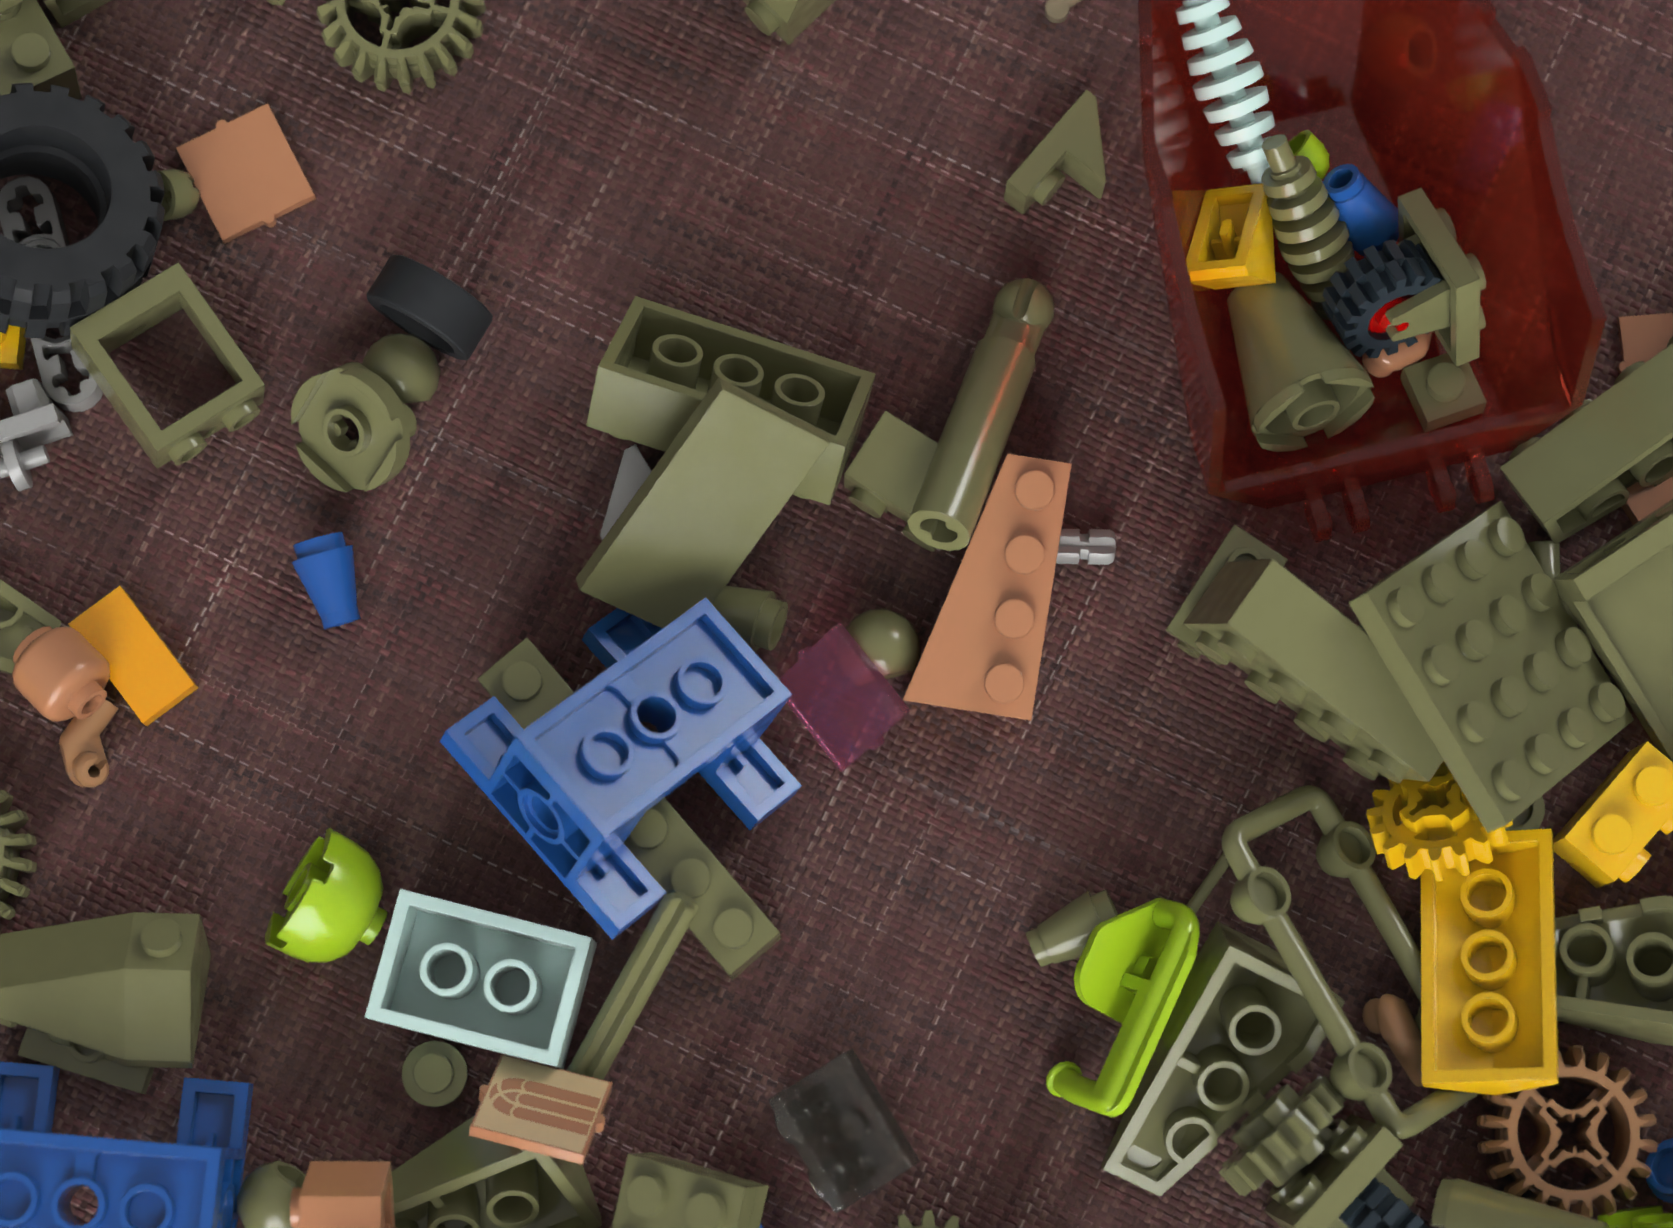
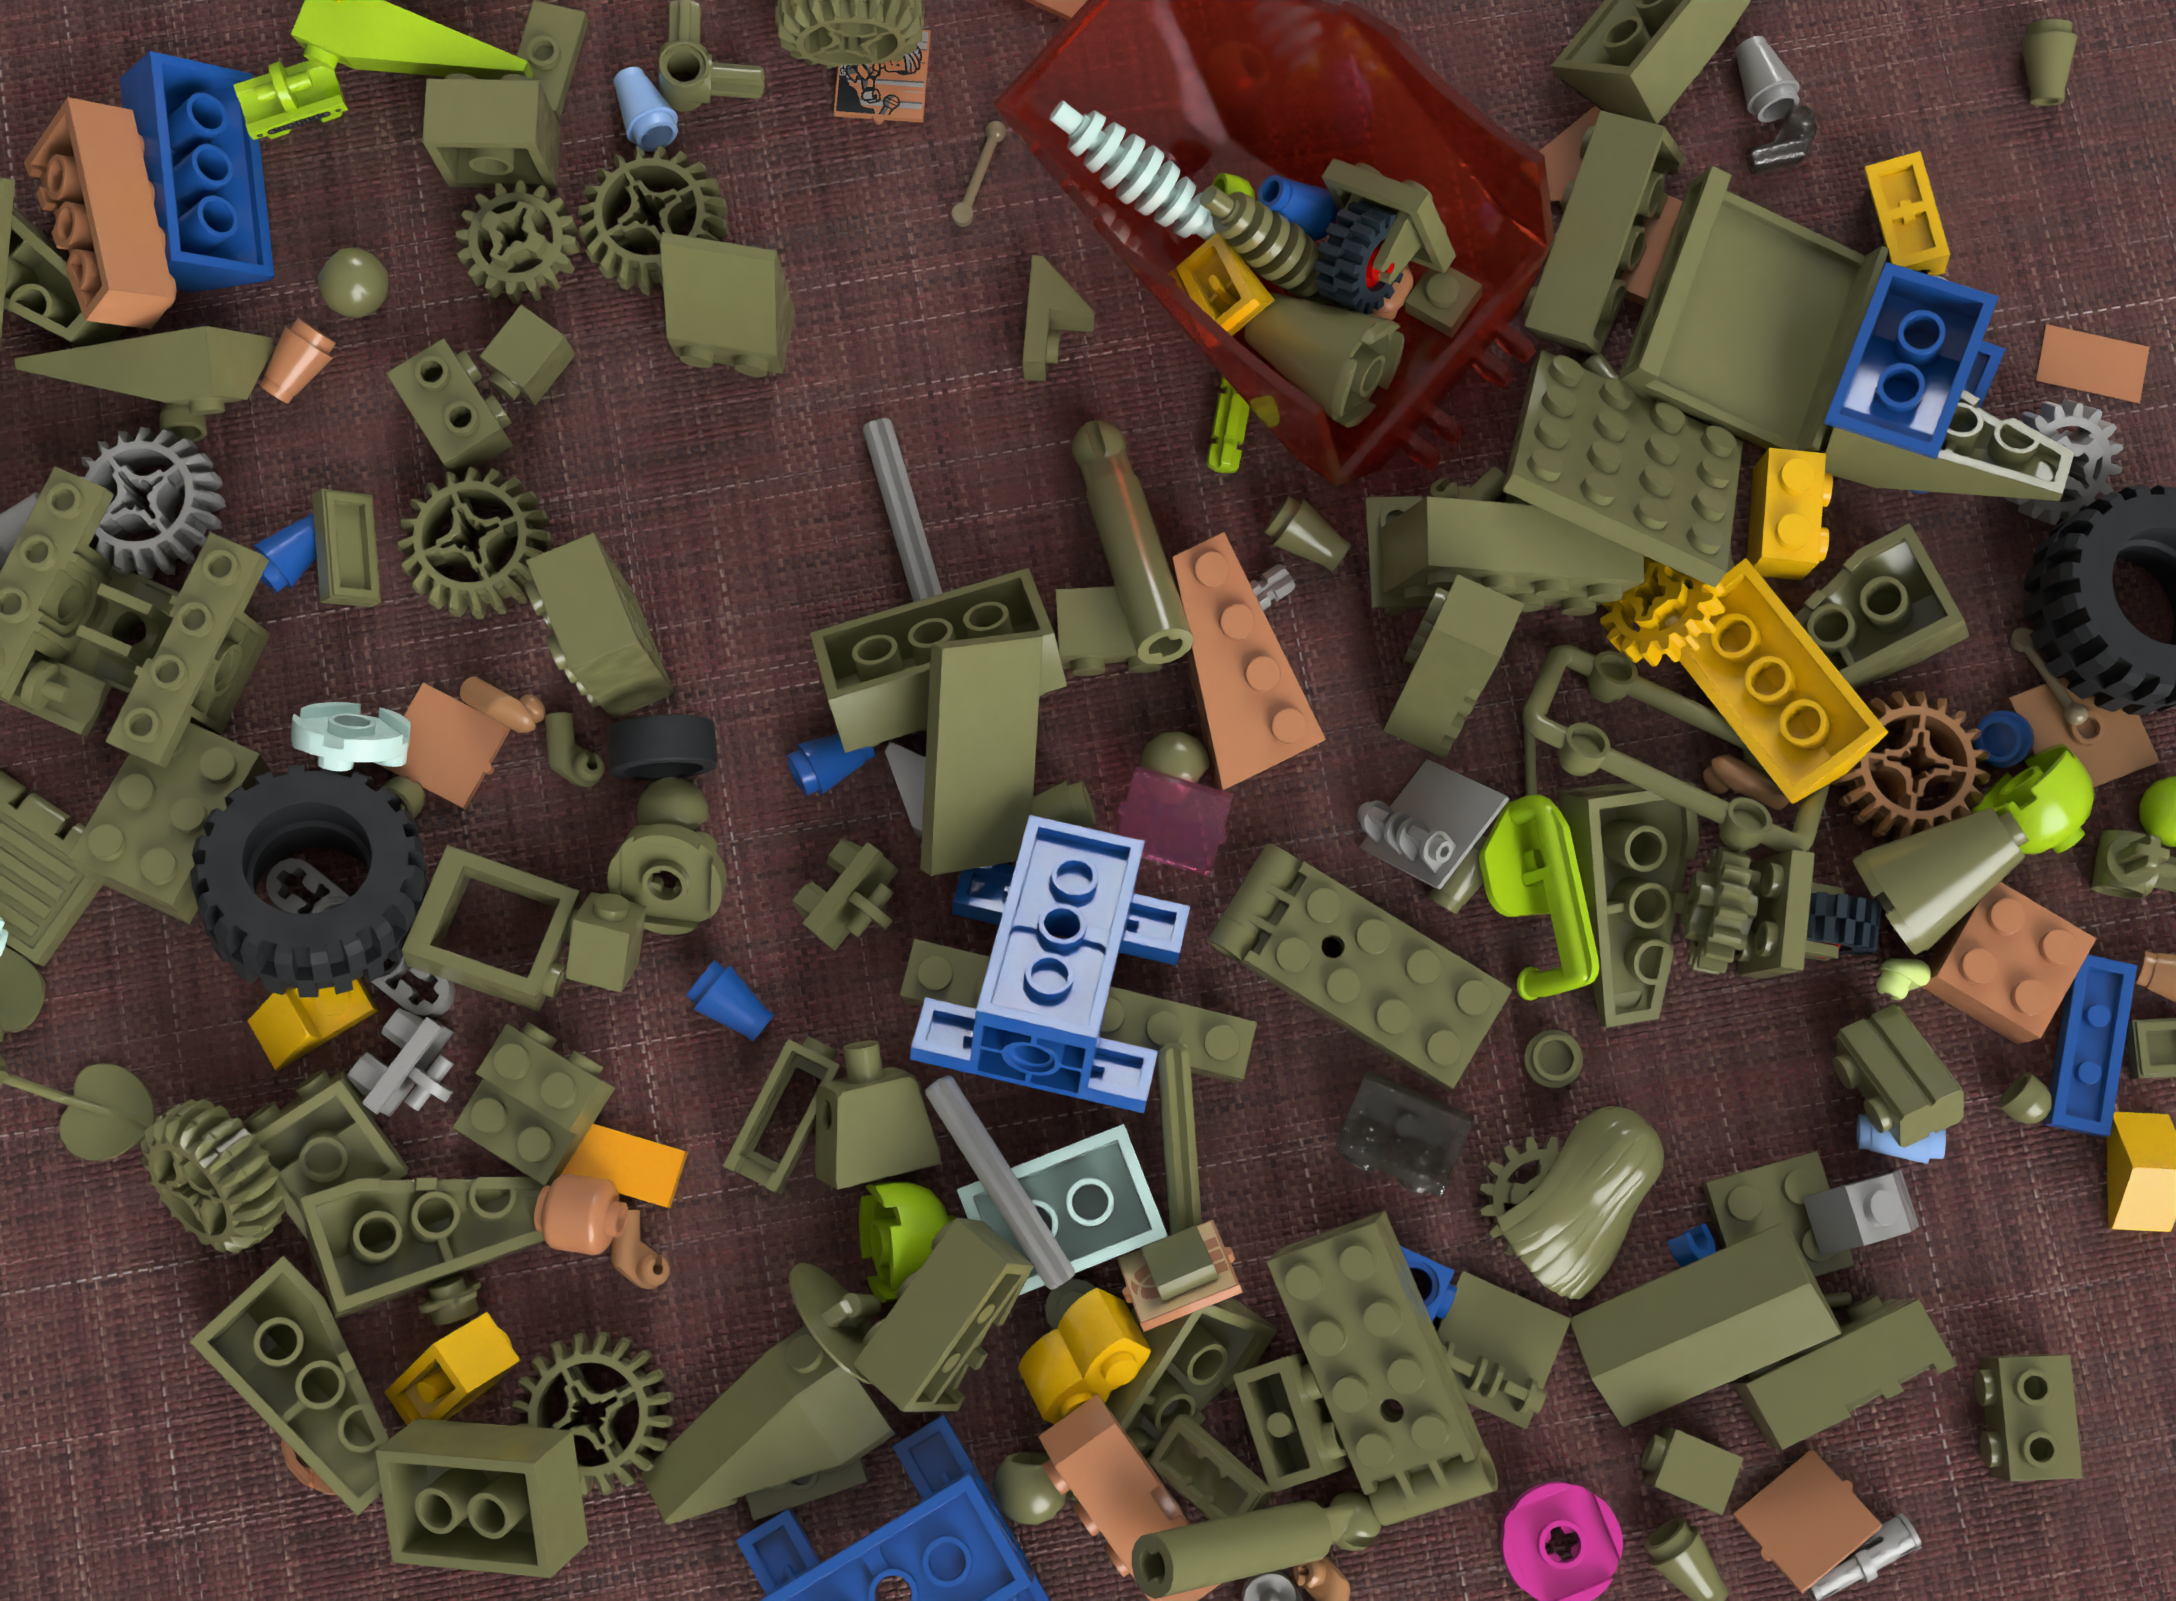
camera: 35 degrees left, 0 degrees up
(94, 546) = (533, 1102): none -> olive plate
(161, 101) = (344, 736): none -> light aqua plate
(213, 933) = (833, 1315): none -> olive shield
(243, 722) = (809, 1057): none -> olive window
(257, 447) = (606, 941): none -> olive brick
(301, 994) = (943, 1317): none -> olive wedge
(315, 166) = (515, 714): none -> medium nougat arm
(345, 258) = (568, 757): none -> olive arm
(370, 774) = (871, 1122): none -> olive torso
(408, 1121) = (1085, 1356): none -> yellow brick
(440, 909) = (1000, 1182): none -> light grey axle
(442, 158) = (597, 627): none -> olive brick
(504, 562) = (852, 899): none -> olive hips
(547, 1098) = (1179, 1263): none -> olive tile
(561, 424) = (823, 763): none -> blue cone
(804, 242) = (901, 509): none -> light grey axle
(923, 982) = (1383, 987): none -> olive hinge
(1033, 1163) = (1553, 1059): none -> olive plate
(1075, 865) = (1430, 823): none -> light grey hinge
(1155, 376) = (1228, 430): none -> lime axle
(1157, 520) = (1306, 533): none -> olive cone
(1192, 732) = (1451, 663): none -> olive wedge
(1317, 576) = (1487, 488): none -> olive arm

